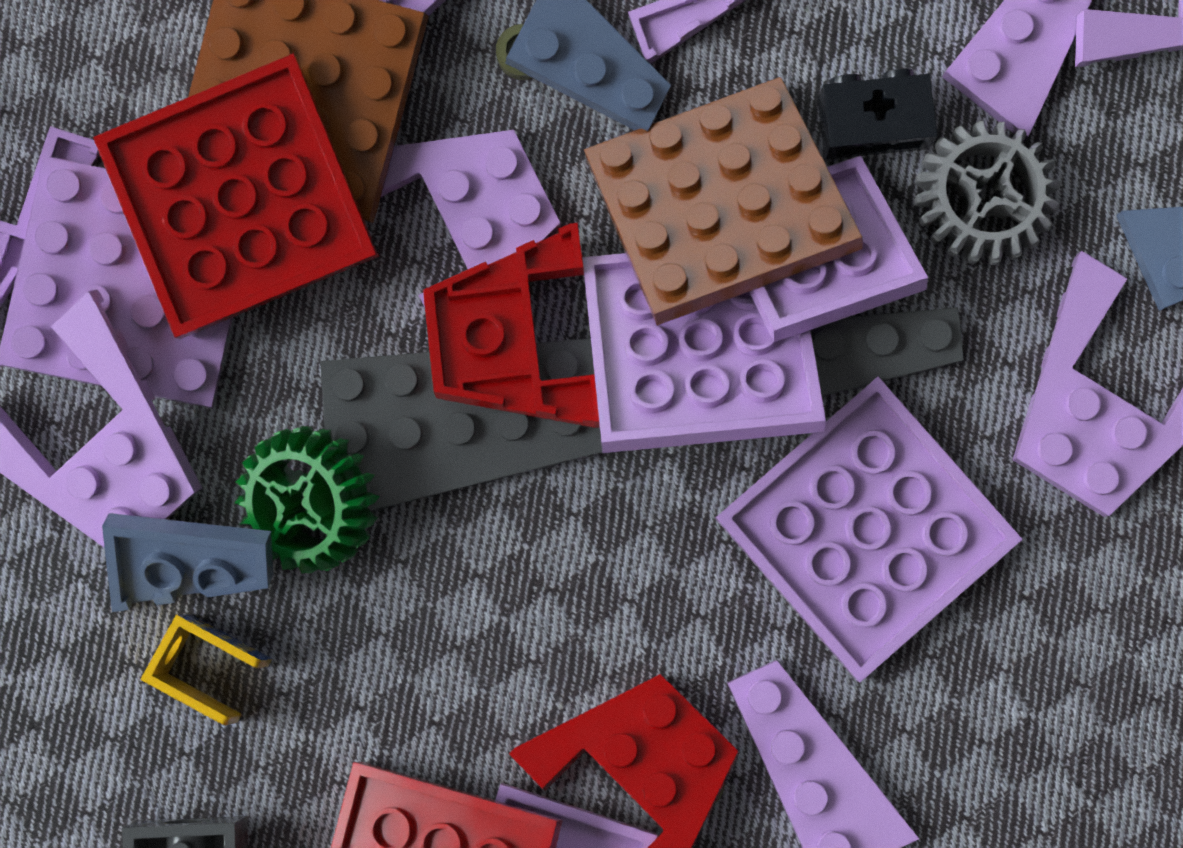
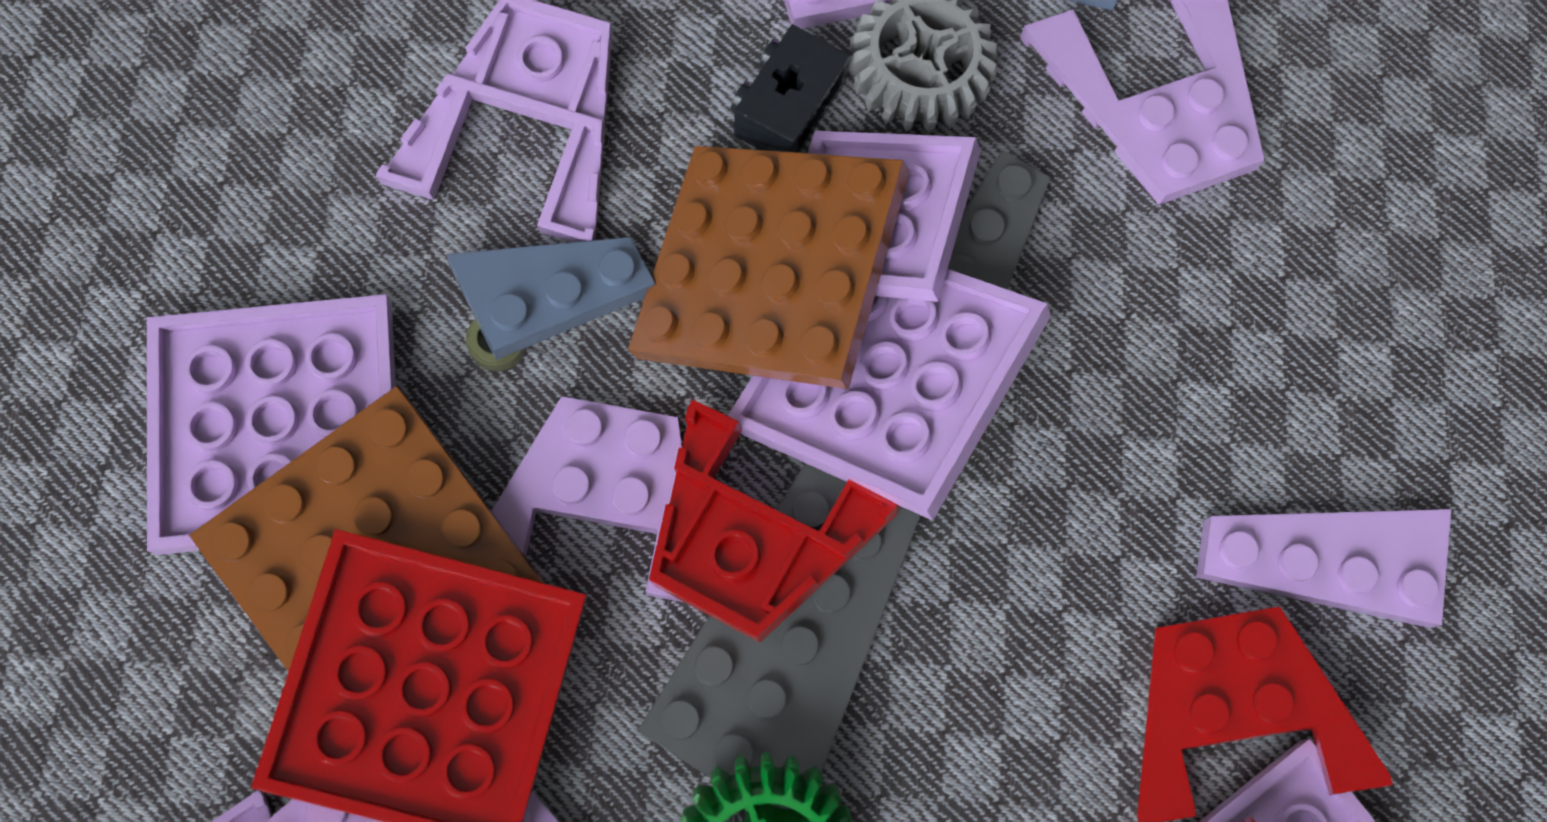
camera: 65 degrees left, 10 degrees down
(868, 529) = (1147, 359): lavender plate -> none

